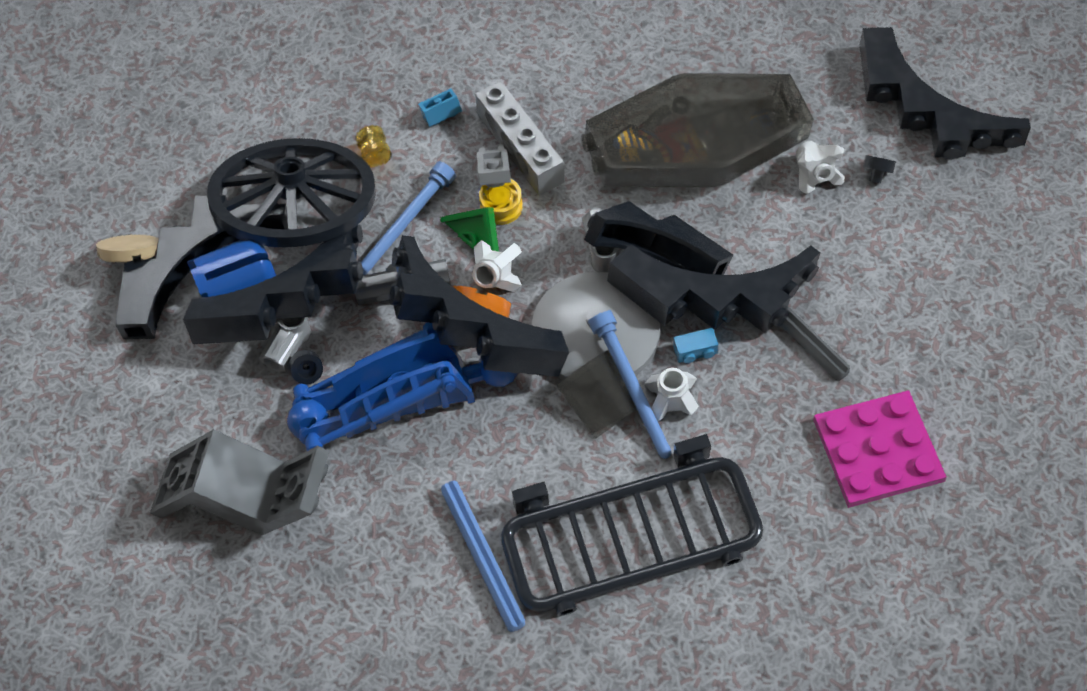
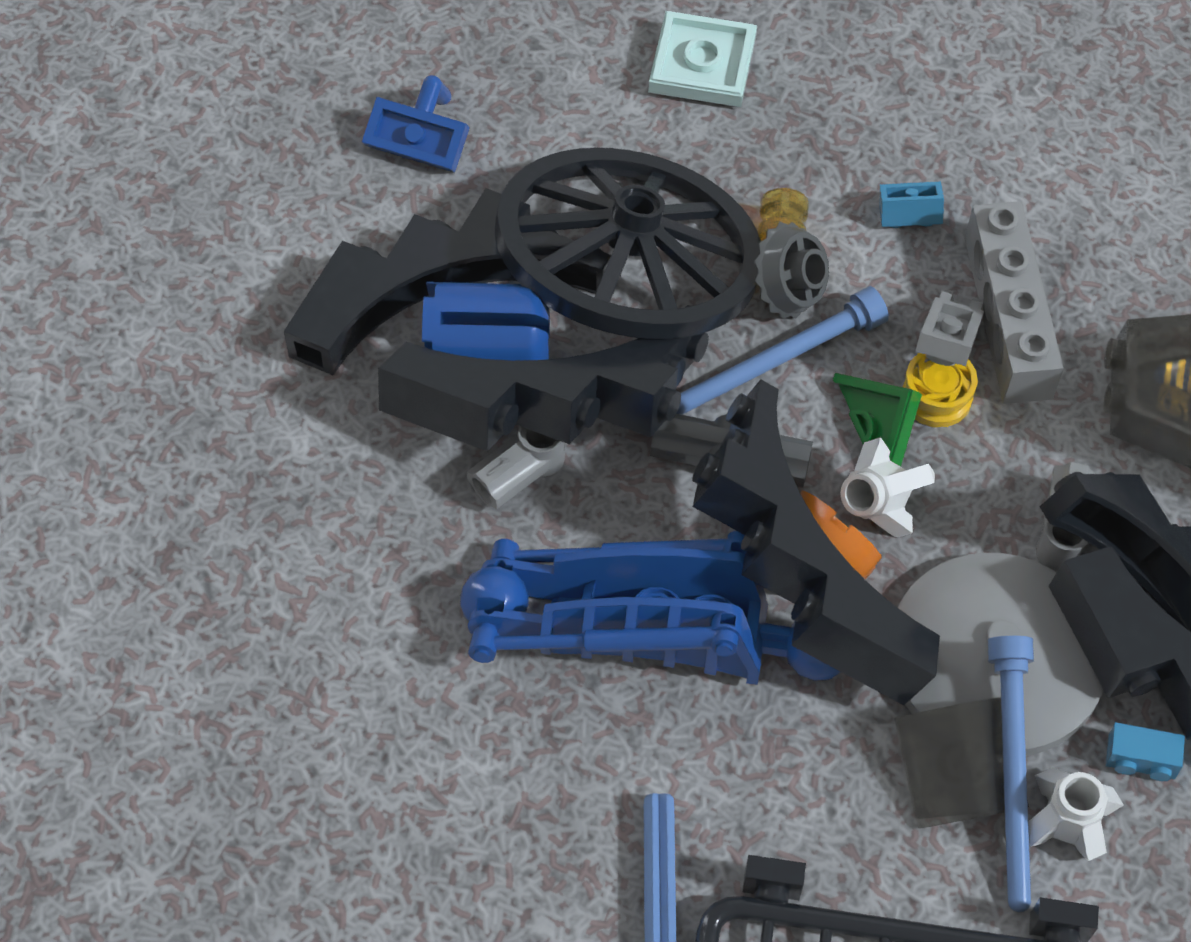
camera: 20 degrees right, 0 degrees up
(124, 248) = (351, 221): tan tile -> none
(138, 181) = (417, 131): none -> blue plate
(241, 483) = (351, 655): dark grey bracket -> none
(285, 73) = (702, 58): none -> light aqua plate
(305, 367) = (529, 516): black tile -> none
(390, 170) = (791, 270): none -> dark grey piece

